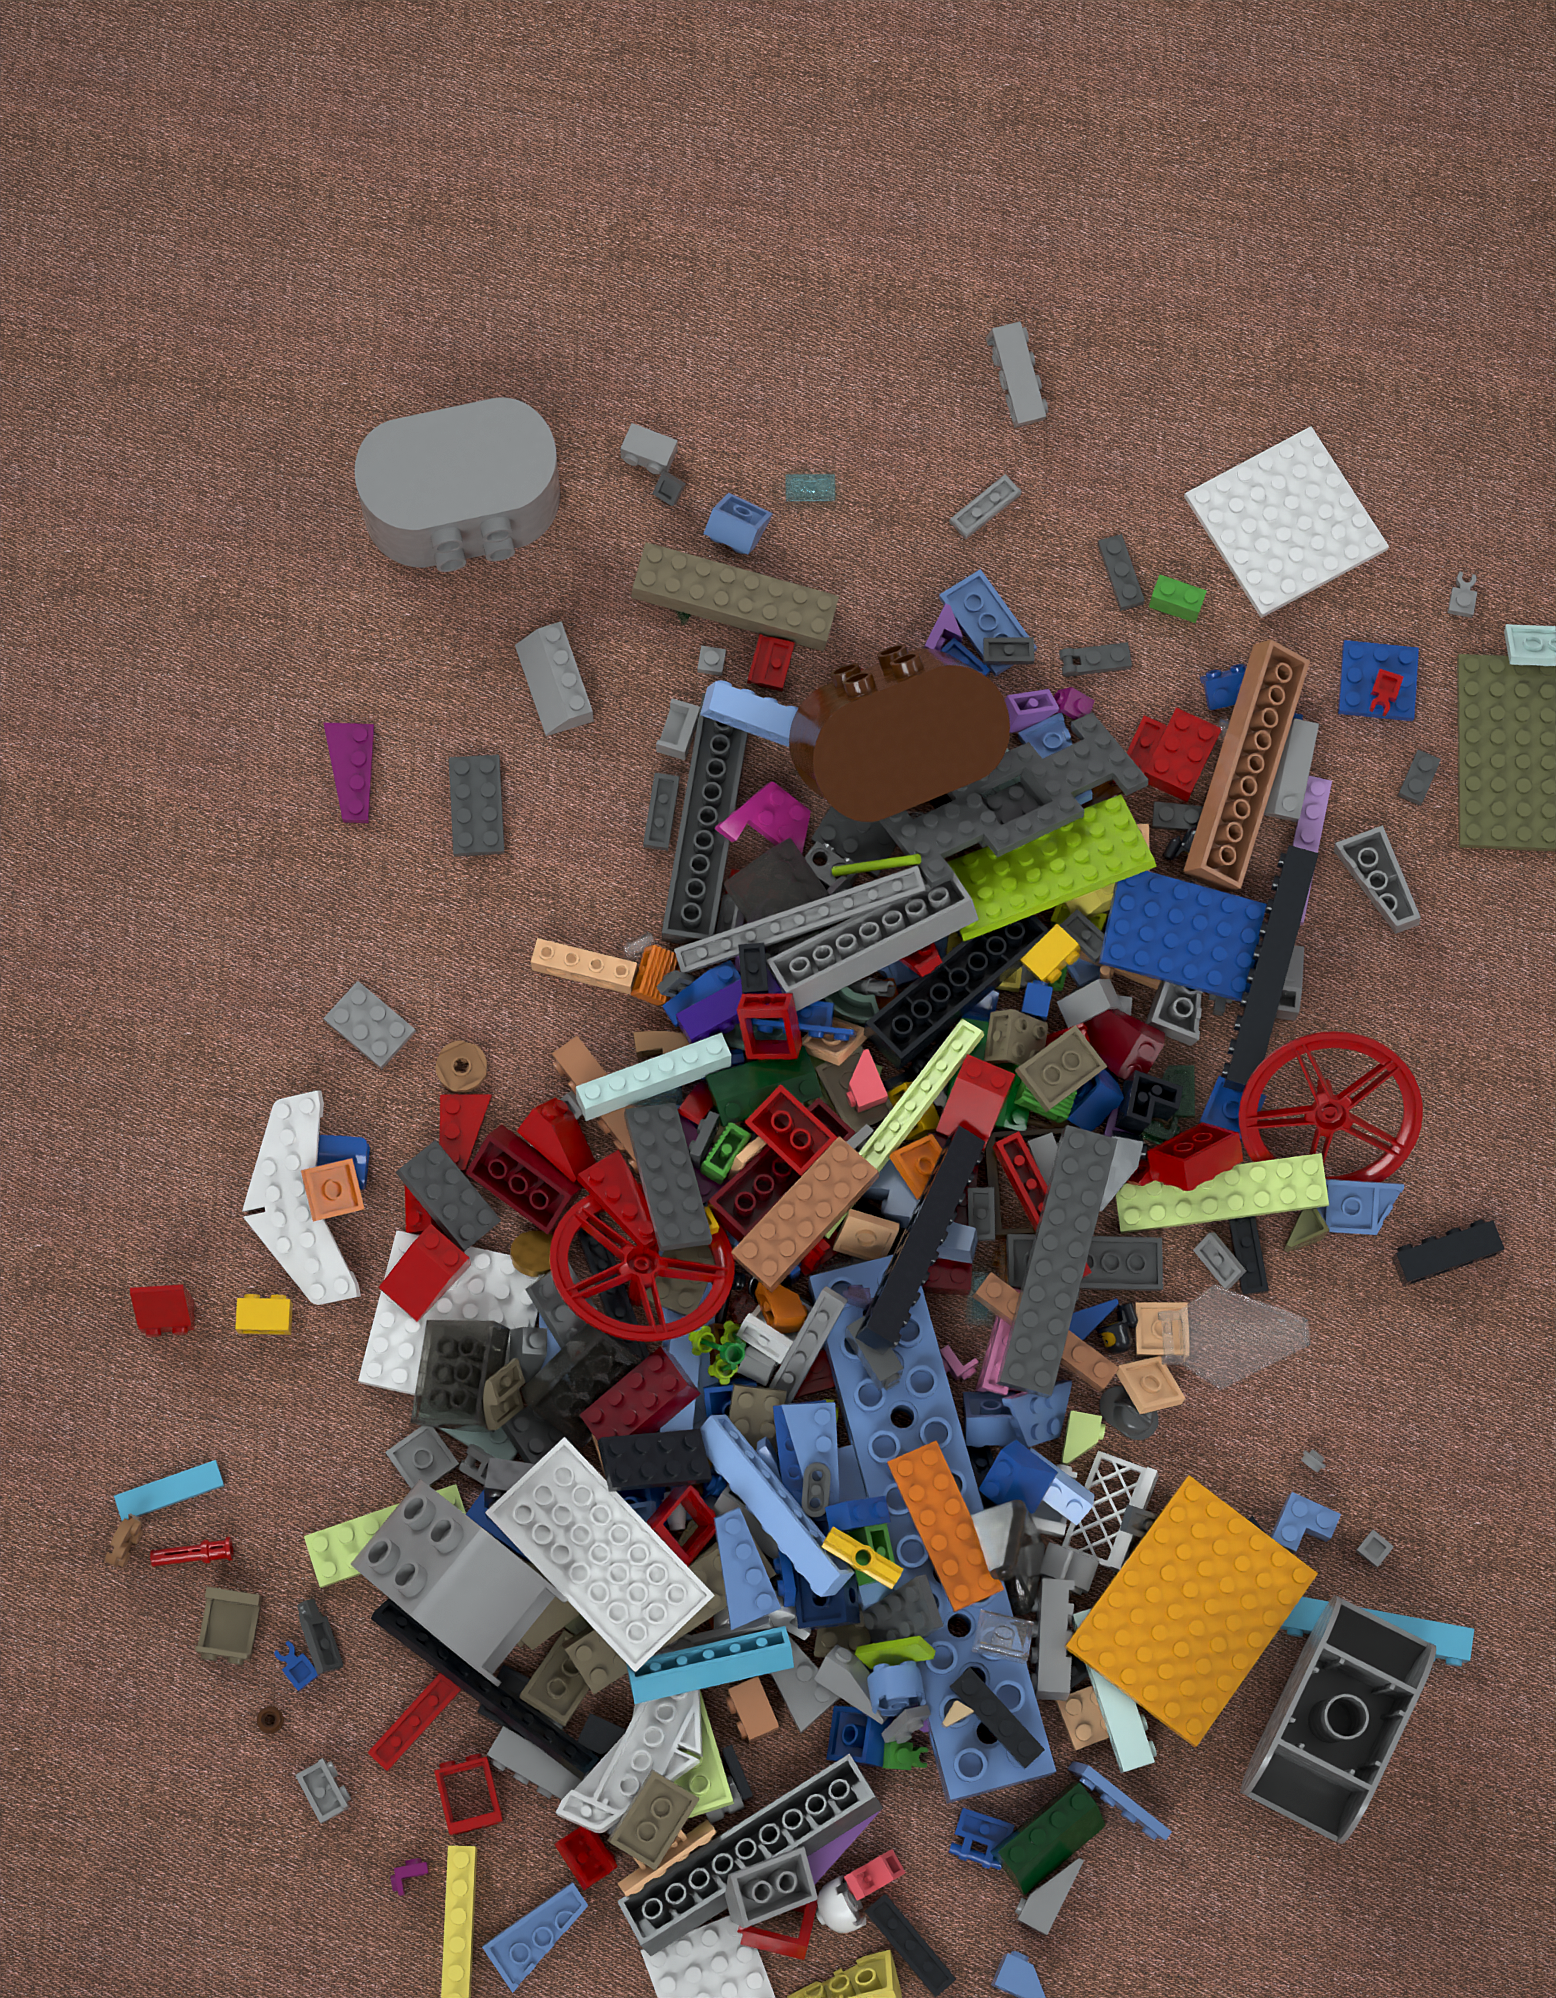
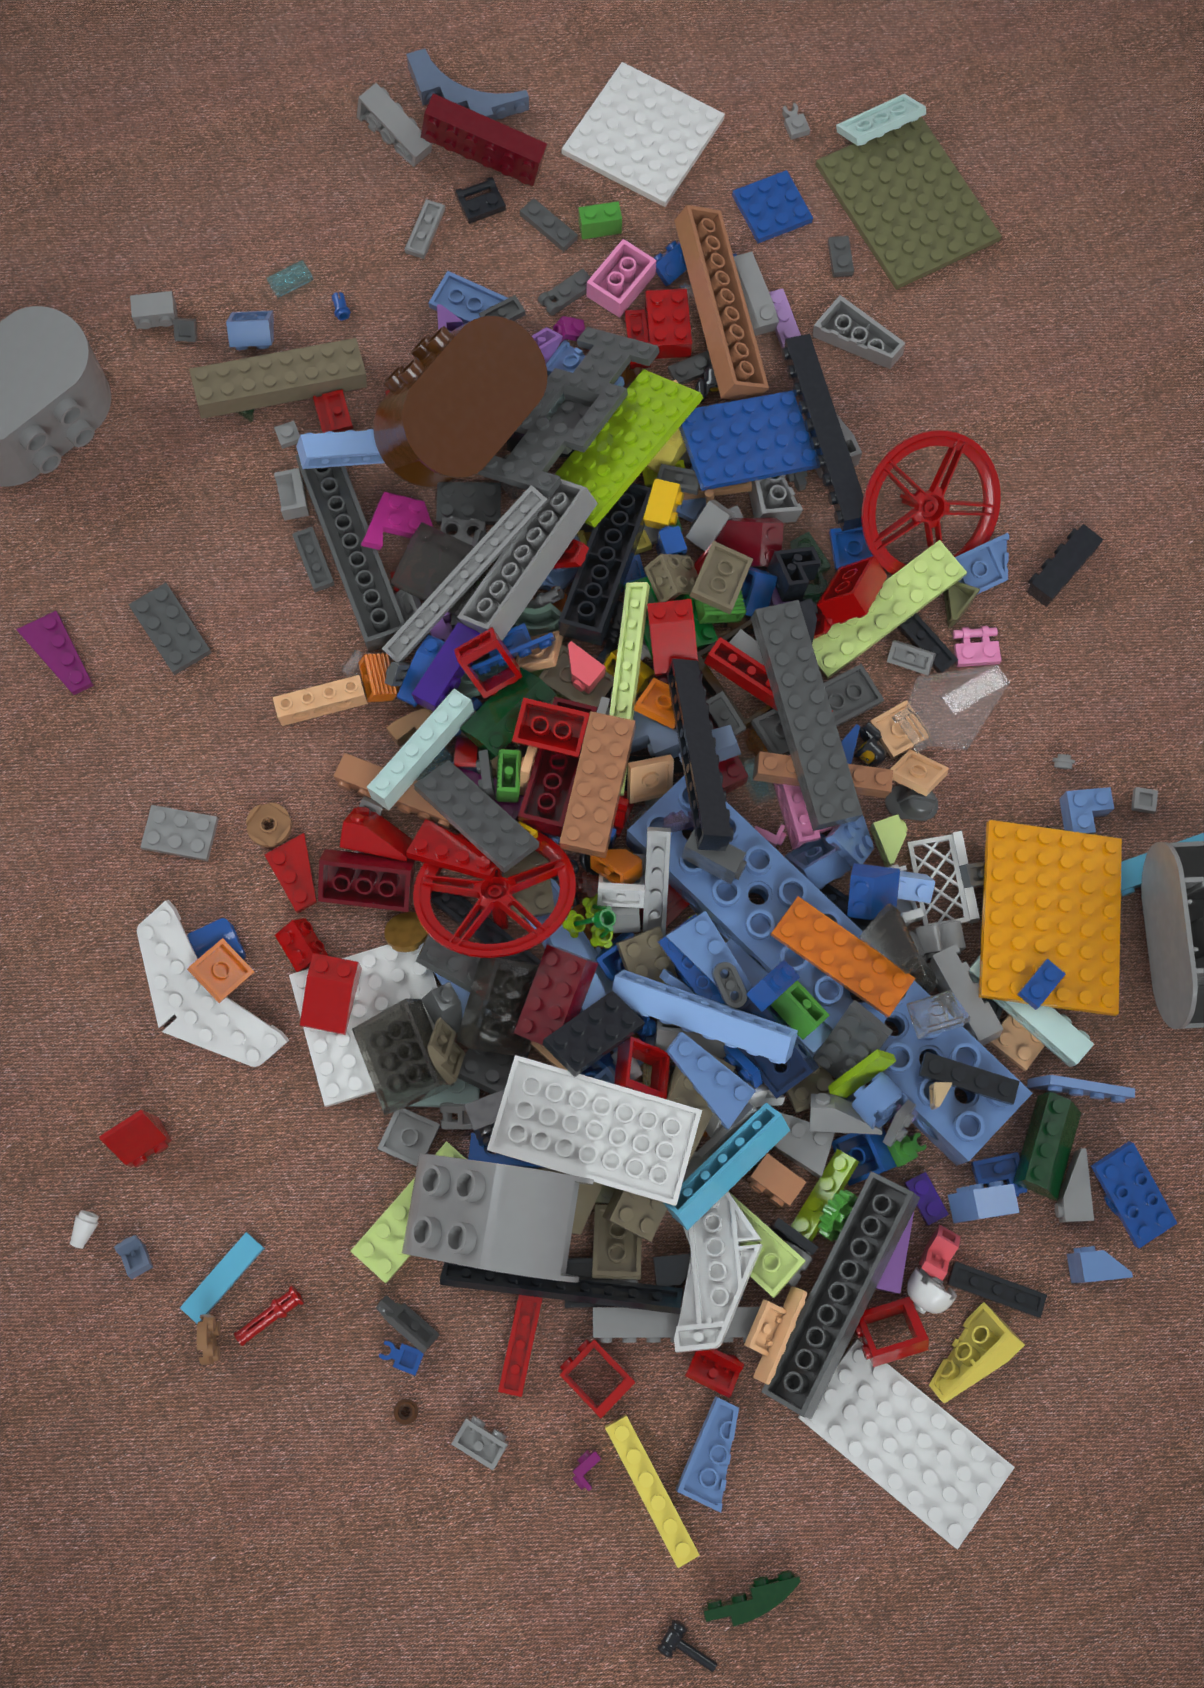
camera: 30 degrees left, 0 degrees up
(66, 1366) = (84, 1226): none -> white cone
(98, 1421) = (134, 1256): none -> sand blue bracket
(229, 1625) = (330, 1356): dark tan panel -> none
(264, 1315) = (221, 1097): yellow brick -> none
(448, 1196) = (314, 926): dark grey plate -> none
(554, 679) = (177, 506): light grey slope -> none
(653, 1819) = (755, 1312): dark tan plate -> none
(753, 968) = (450, 627): black plate -> none
(770, 1888) = (876, 1312): light grey slope -> none
(791, 1775) = (836, 1214): none -> bright green gear
(793, 1753) = (832, 1181): none -> lime plate
(845, 548) = (341, 311): none -> blue pin
(876, 865) = (500, 504): lime bar -> none
(877, 1567) = (812, 1015): yellow piece -> none
(895, 1817) = (930, 1204): none -> dark purple plate
(941, 1850) = (978, 1202): none -> medium blue brick
(1063, 513) = (483, 205): none -> black plate
(1099, 446) = (483, 140): none -> dark red brick
(1104, 1934) = (1133, 1194): none -> blue plate
(1105, 379) = (431, 80): none -> sand blue arch
(1132, 1670) = (1041, 984): none -> blue plate
(1160, 677) = (621, 278): none -> bright pink brick
(1295, 1294) = (976, 653): none -> bright pink plate
(1385, 688) = (784, 205): red plate -> none

